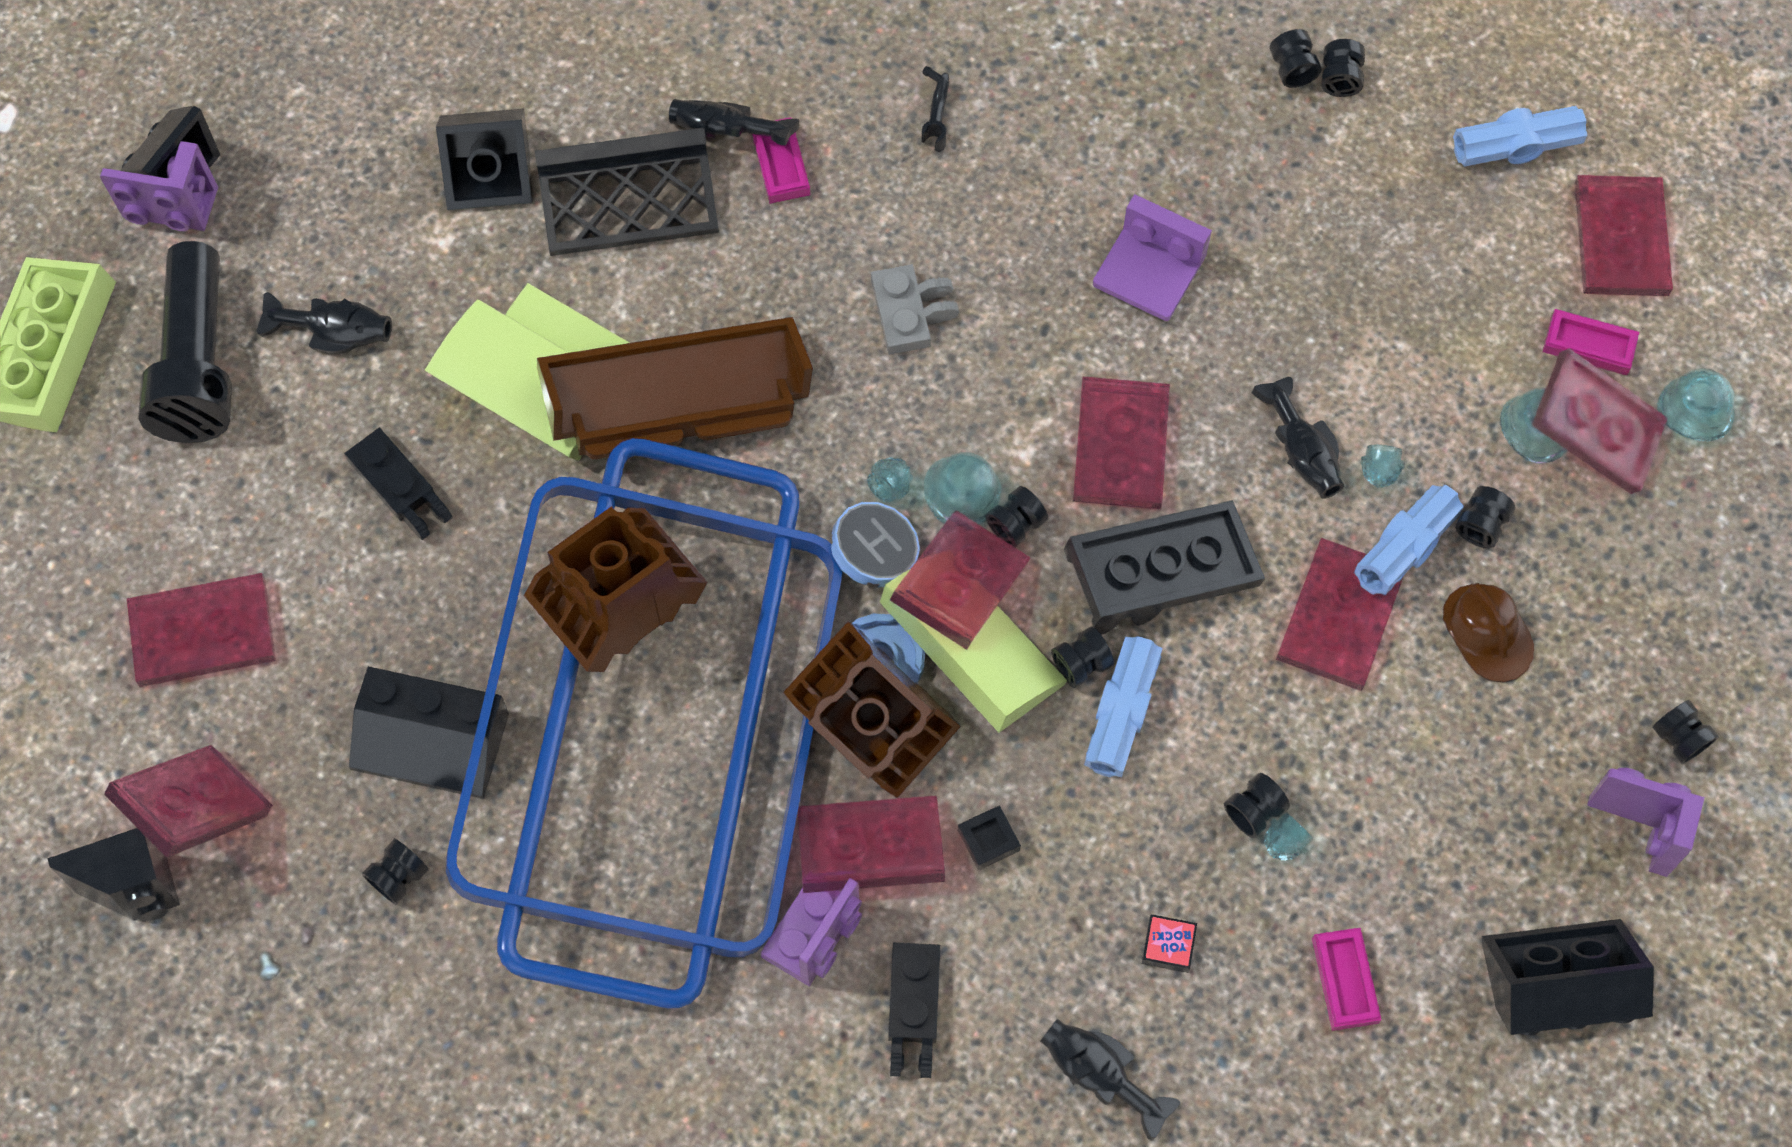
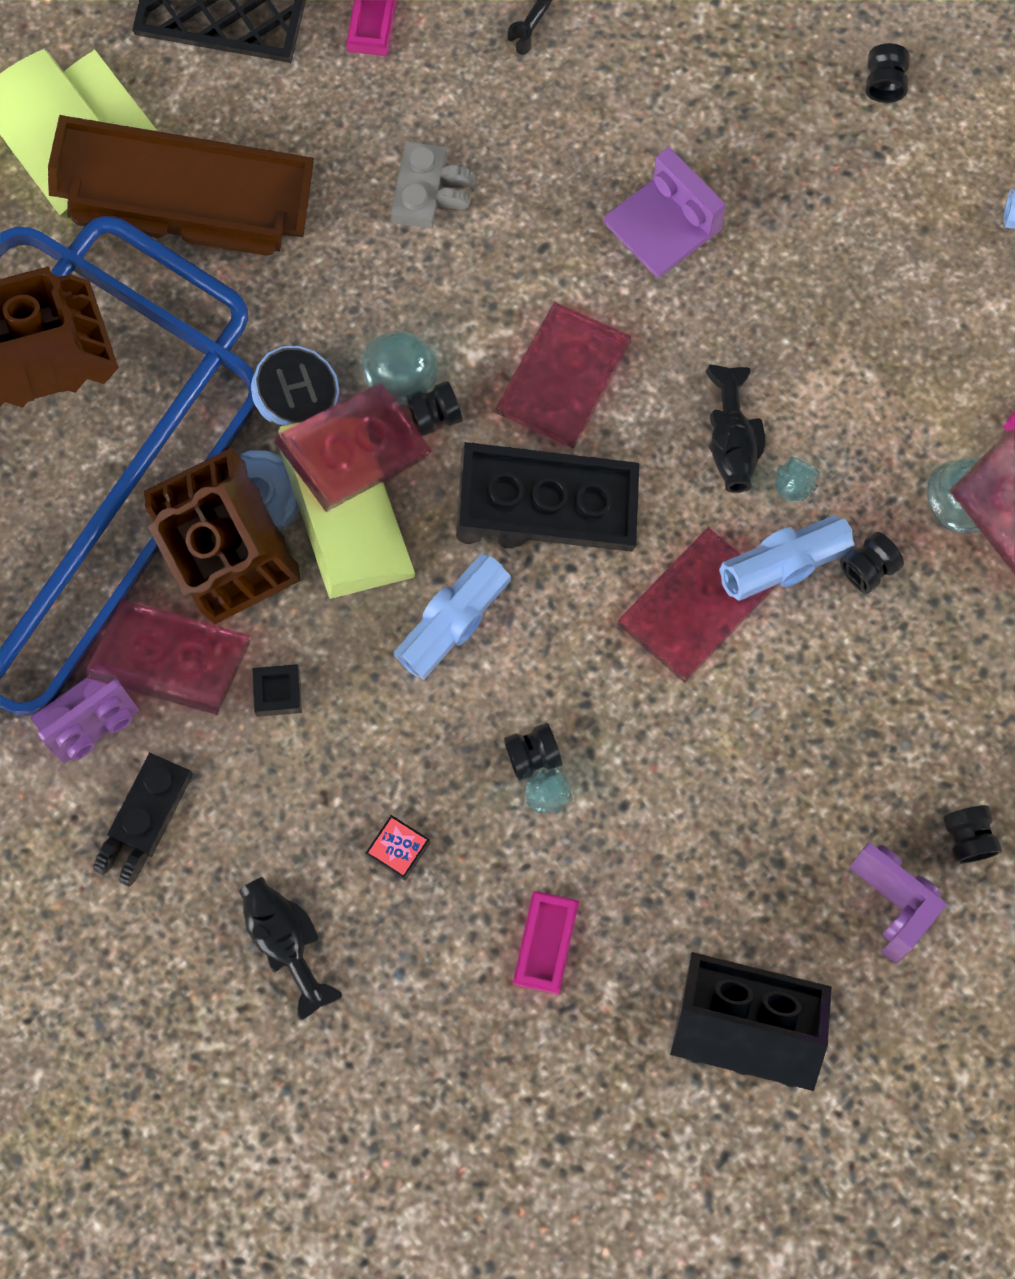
camera: 25 degrees right, 5 degrees up
(890, 479) = (337, 334): clear light blue plate -> none
(1082, 657) = (435, 557): black wheel -> none
(1343, 66) = (926, 102): black wheel -> none
(1489, 631) = (829, 672): reddish brown piece -> none

